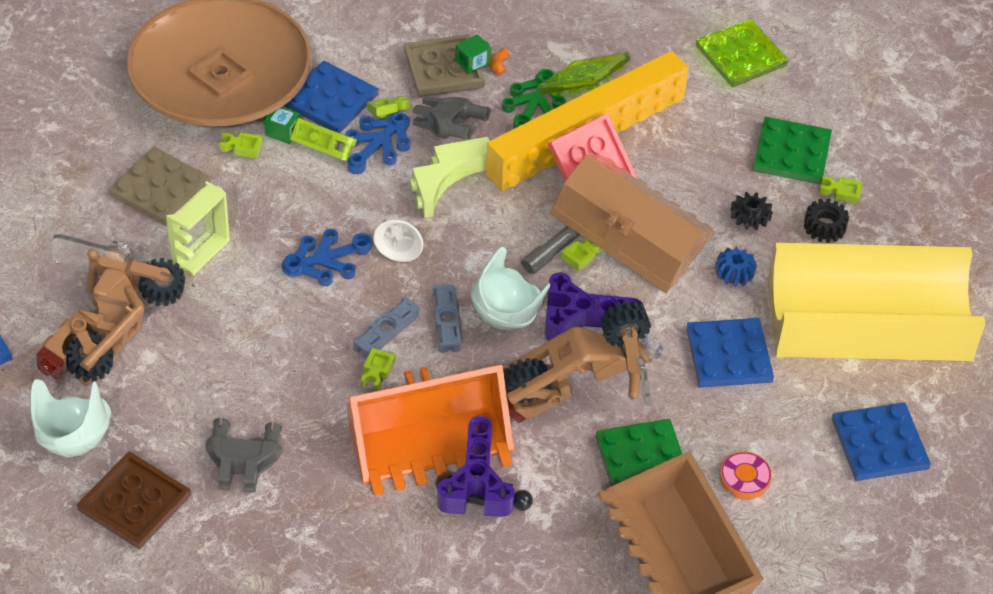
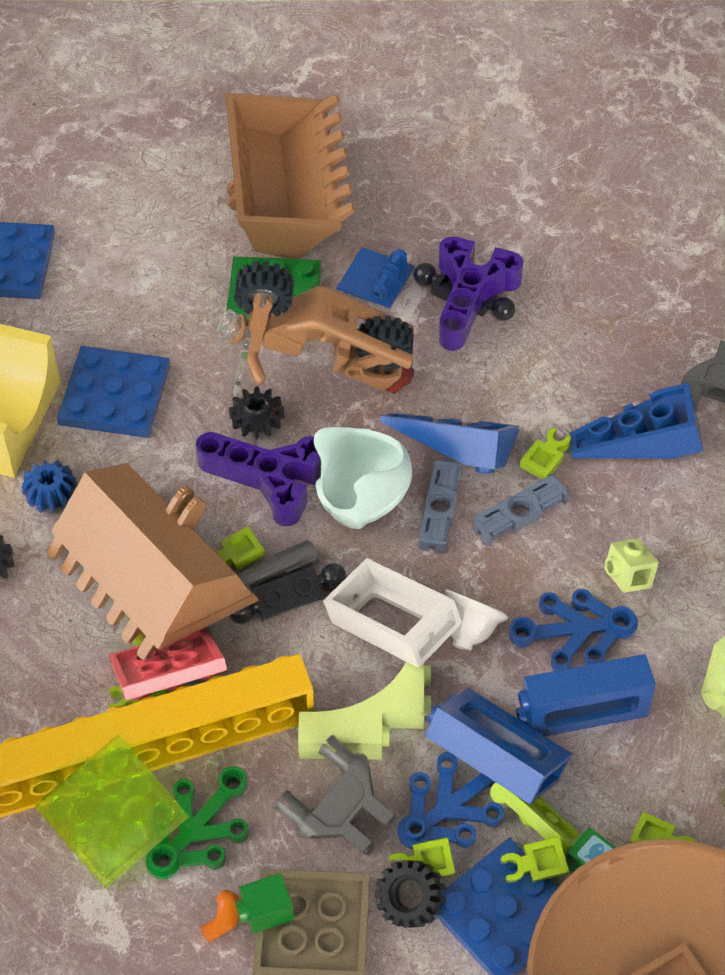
camera: 160 degrees left, 5 degrees up
(294, 292) = (631, 565): none -> yellowish green brick
(303, 398) = (653, 429): none -> blue wedge
(309, 208) = (587, 696): none -> blue piece
(316, 107) = (541, 859): none -> lime plate
(387, 184) = (497, 744): none -> blue piece
(389, 81) = (389, 893): none -> black tyre
(426, 425) = (508, 361): orange piece -> none
(447, 358) = (477, 444): none -> wedge
(463, 209) = (371, 580): none -> white piece
(531, 236) = (291, 592): none -> black plate
(563, 492) = (377, 276): none -> blue hinge
(745, 475) = (170, 255): tile -> none

